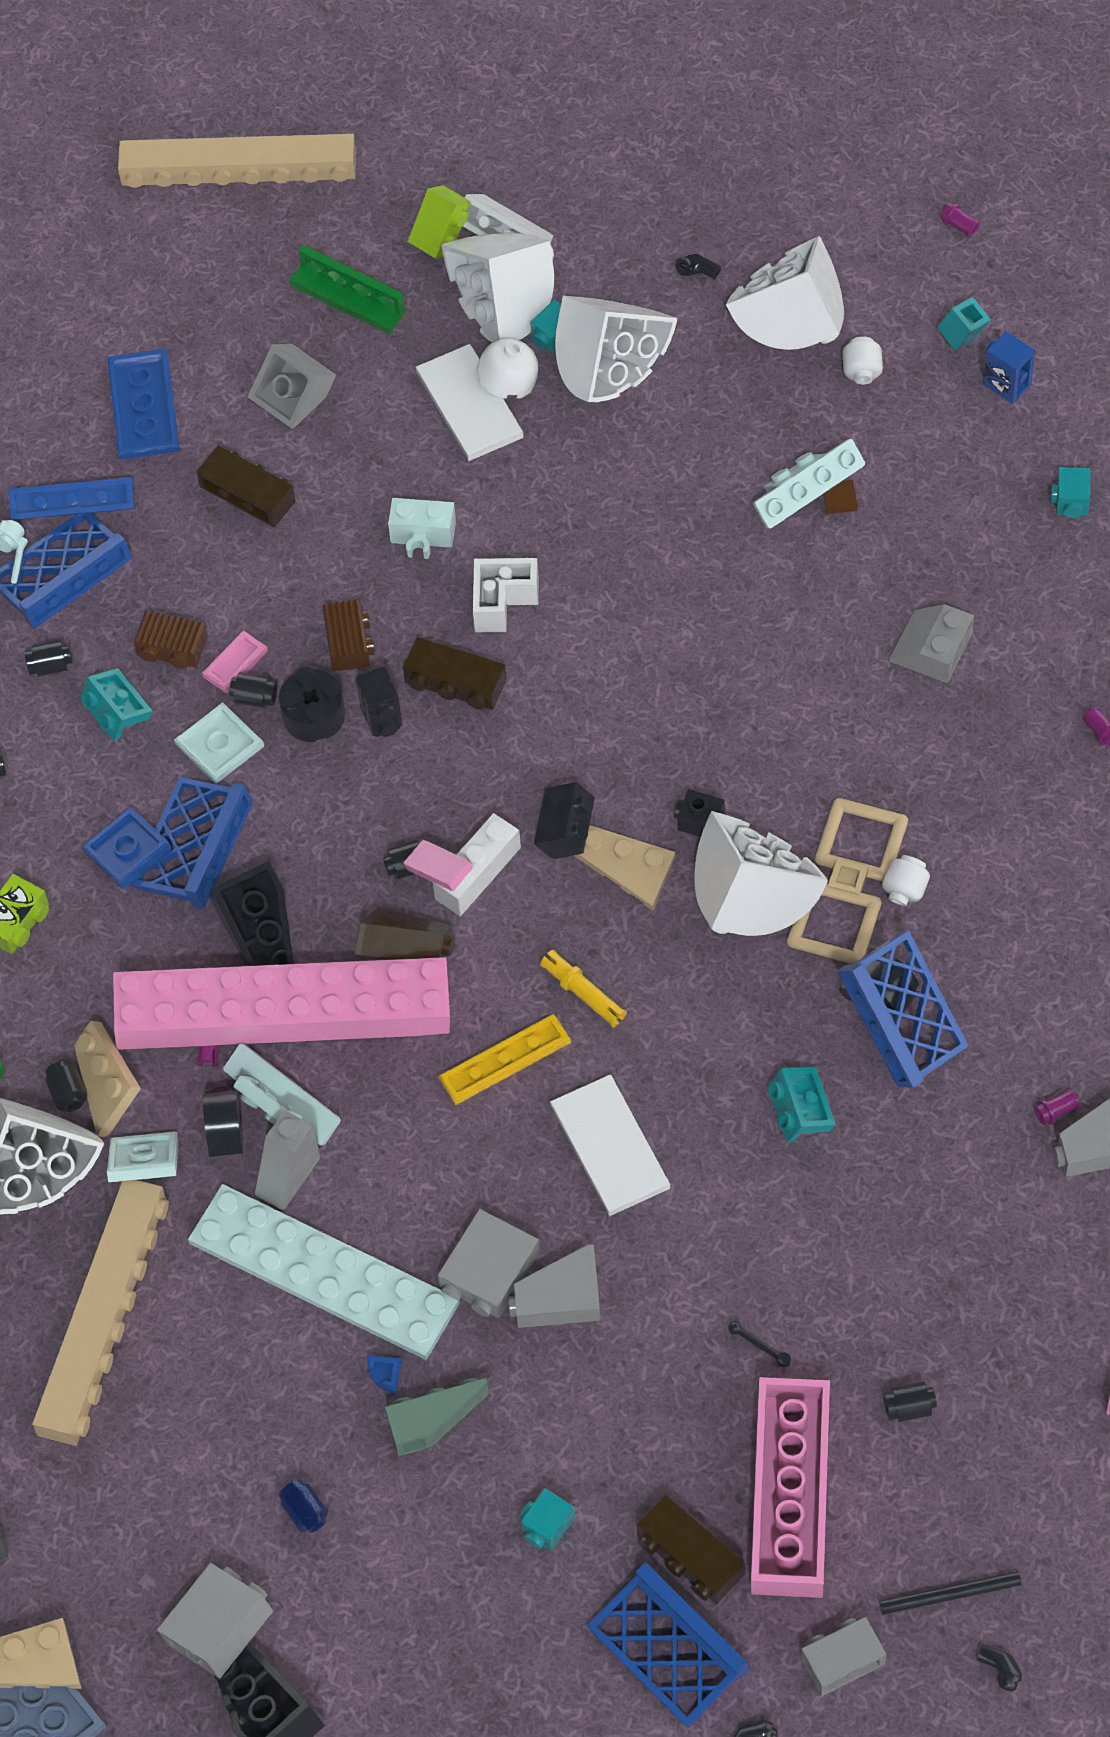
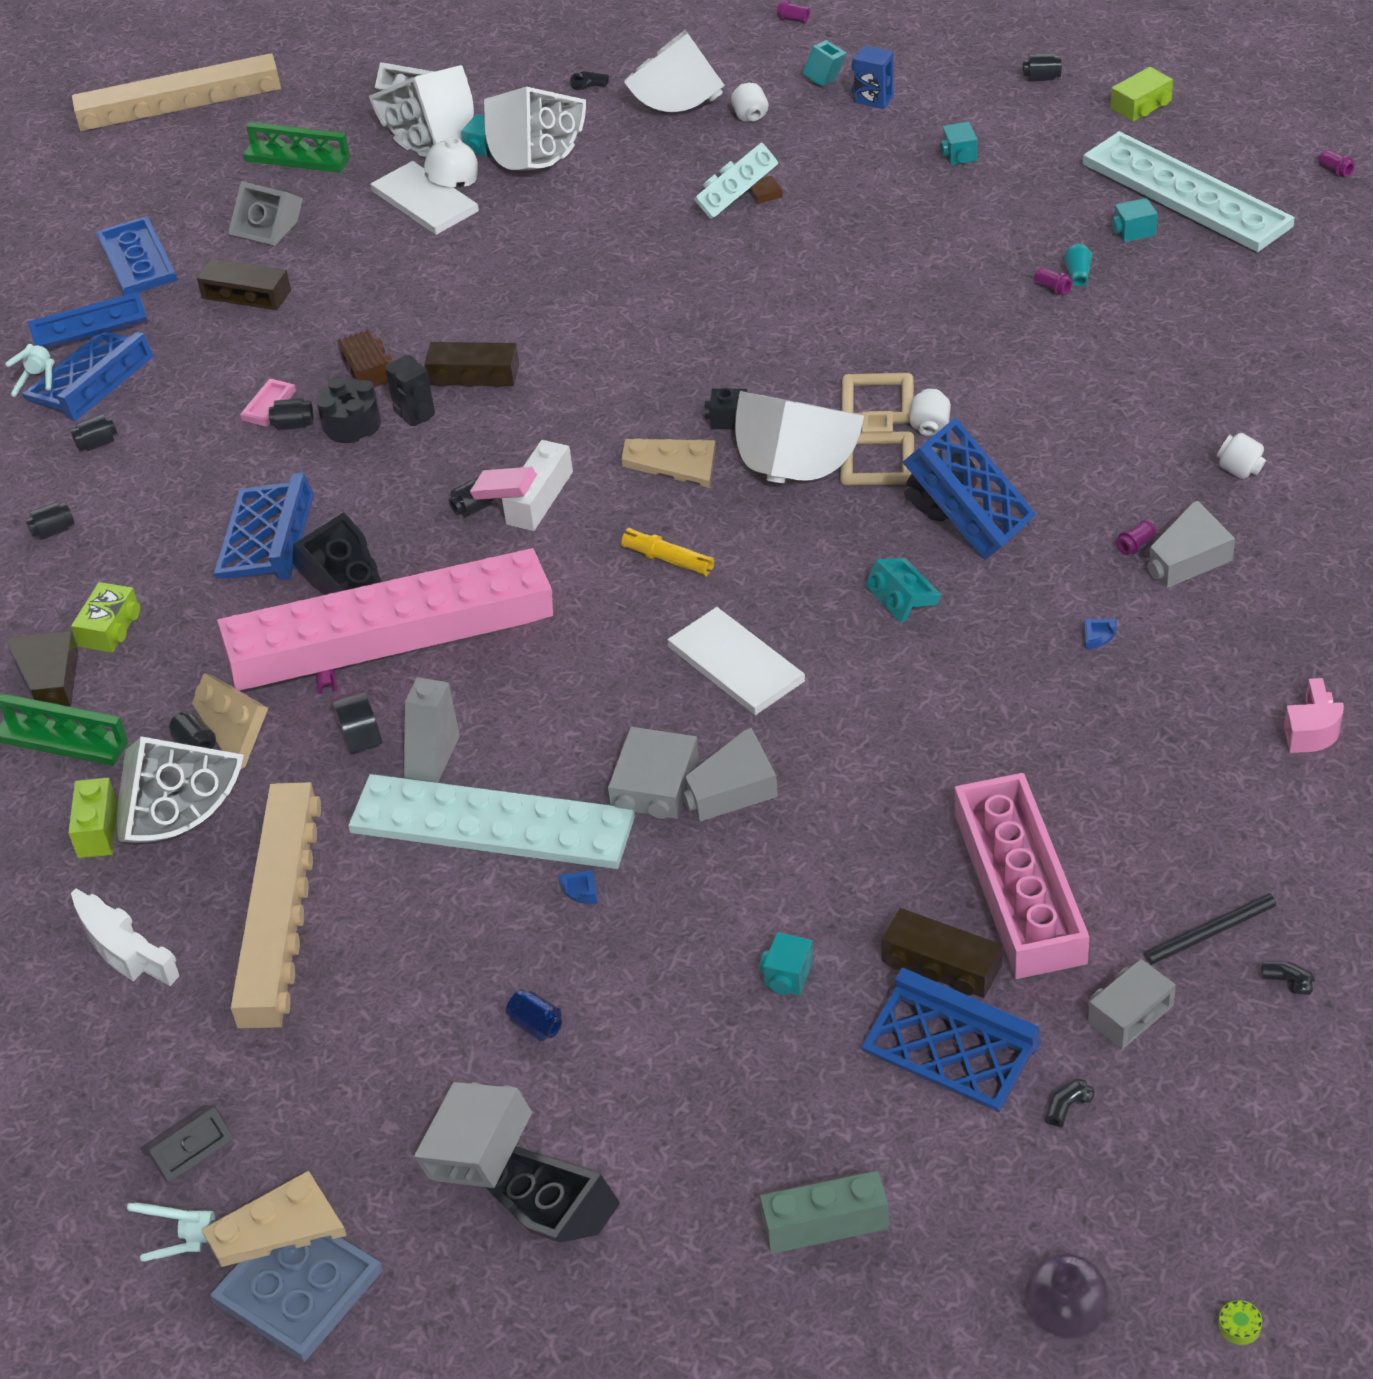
camera: 15 degrees left, 15 degrees down
(114, 702) = (162, 451): teal bracket -> none
(126, 847) = (203, 547): blue tile -> none
(142, 1156) = (284, 767): light aqua tile -> none
(170, 639) = (204, 396): reddish brown brick -> none
(219, 743) = (270, 459): light aqua tile -> none
(274, 1092) = (392, 688): light aqua bracket -> none
(403, 936) = (478, 544): dark brown slope -> none
(422, 524) = (409, 273): light aqua brick -> none
(426, 1419) = (638, 908): sand green slope -> none
(439, 220) = (359, 82): lime brick -> none
(500, 584) = (493, 296): white brick -> none
(504, 1059) = (611, 621): yellow tile -> none
(564, 820) = (607, 436): black piece -> none
(783, 1359) = (911, 770): black hinge -> none
(909, 1402) = (1103, 783): black brick -> none
(934, 641) = (885, 256): light grey slope -> none
(976, 1214) = (1098, 631): none -> blue tile

